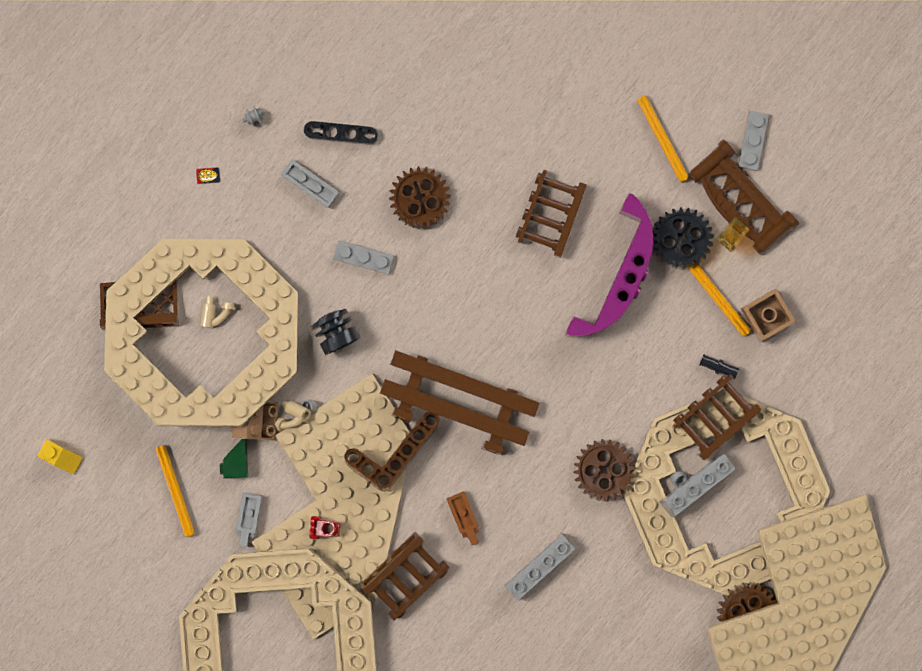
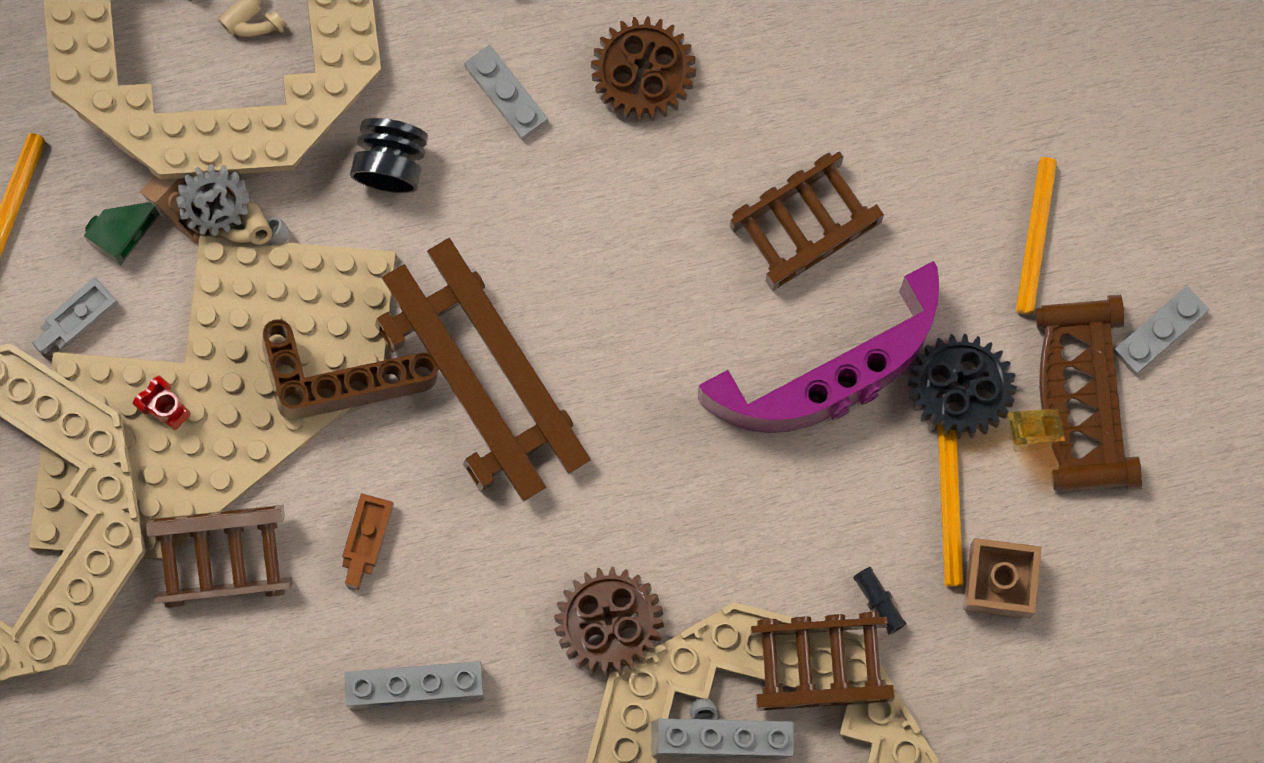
camera: 40 degrees right, 10 degrees down
(272, 416) = (205, 189): none -> light grey gear

